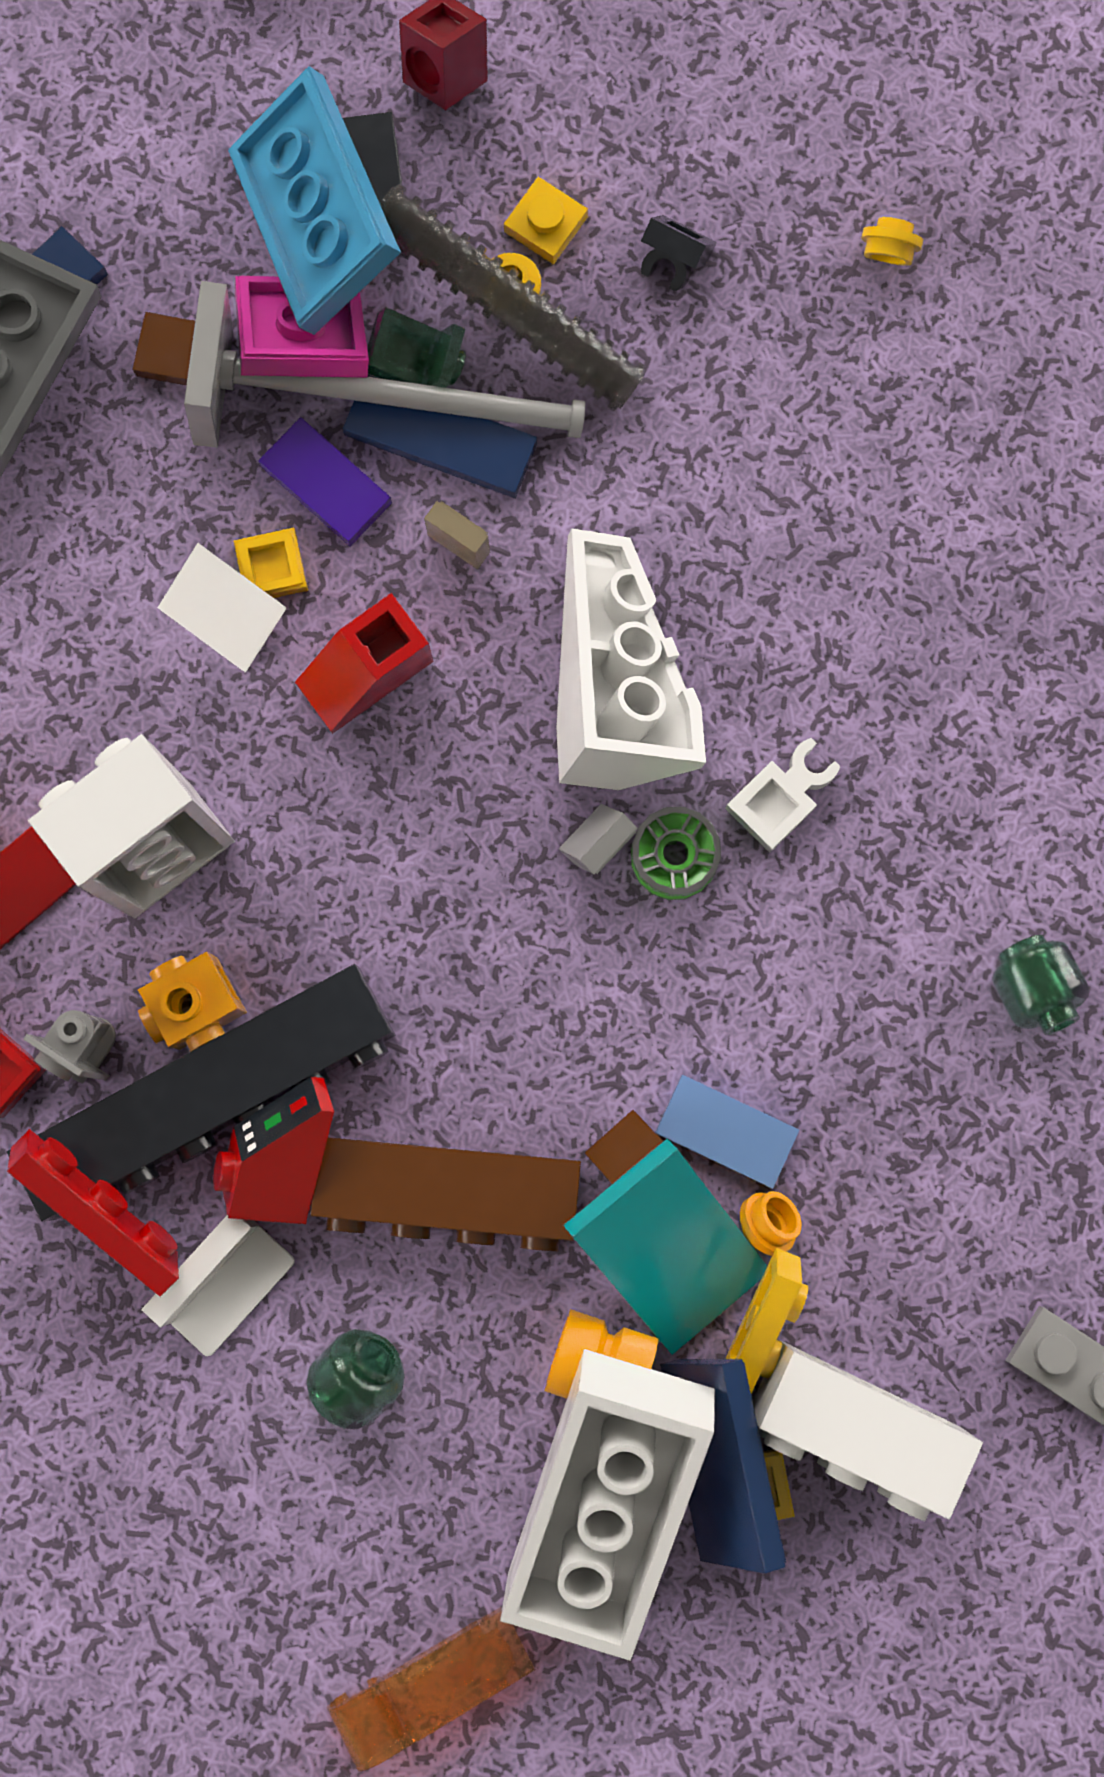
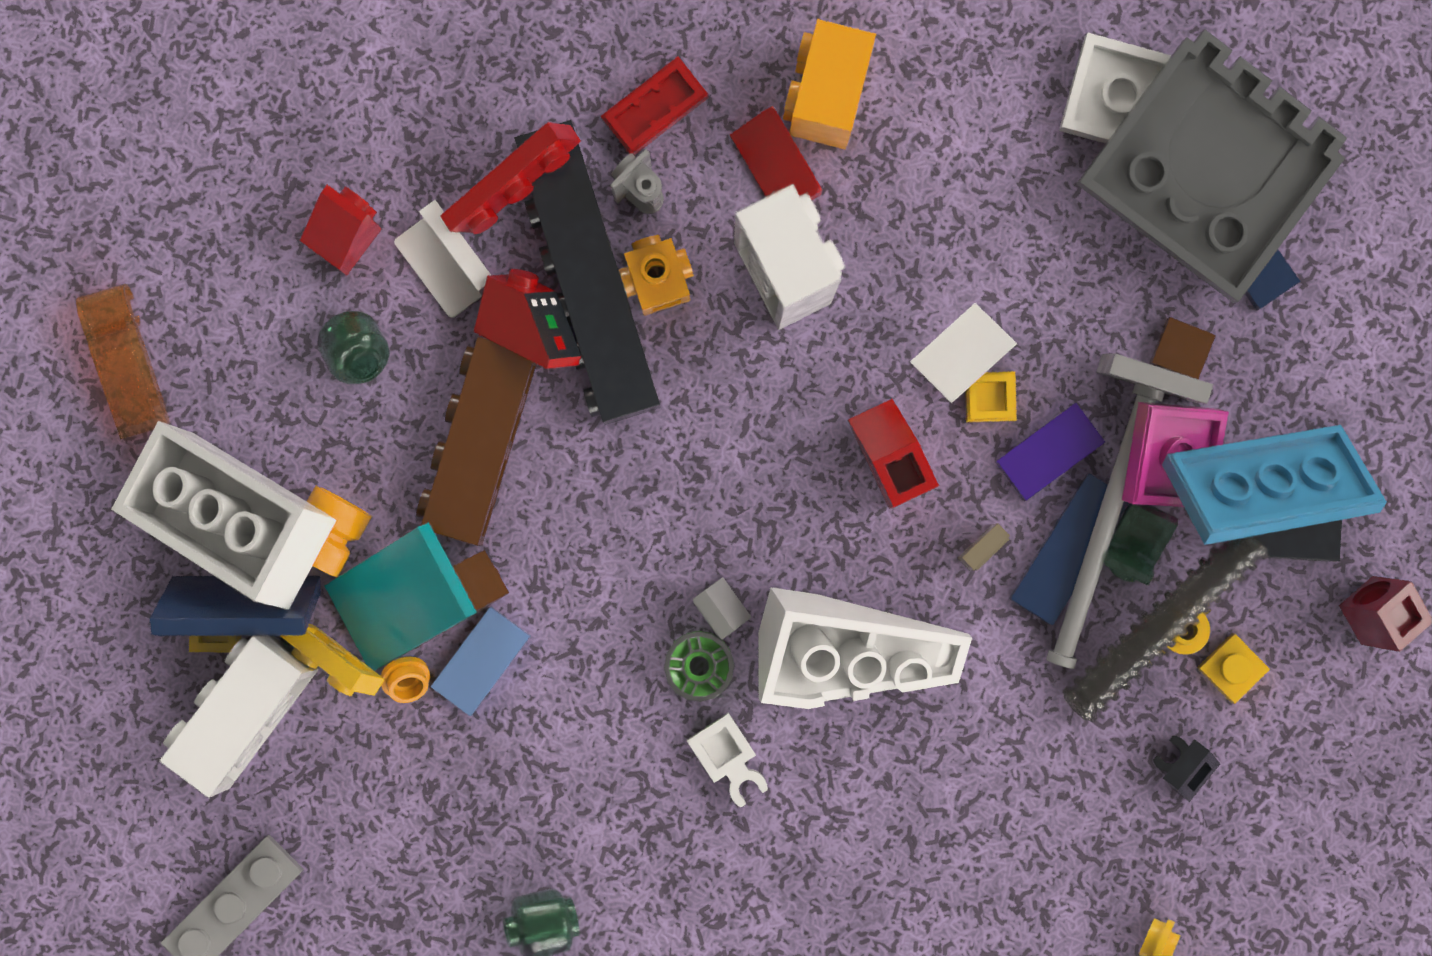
camera: 100 degrees right, 5 degrees up
(200, 1428) = (340, 228): none -> red slope

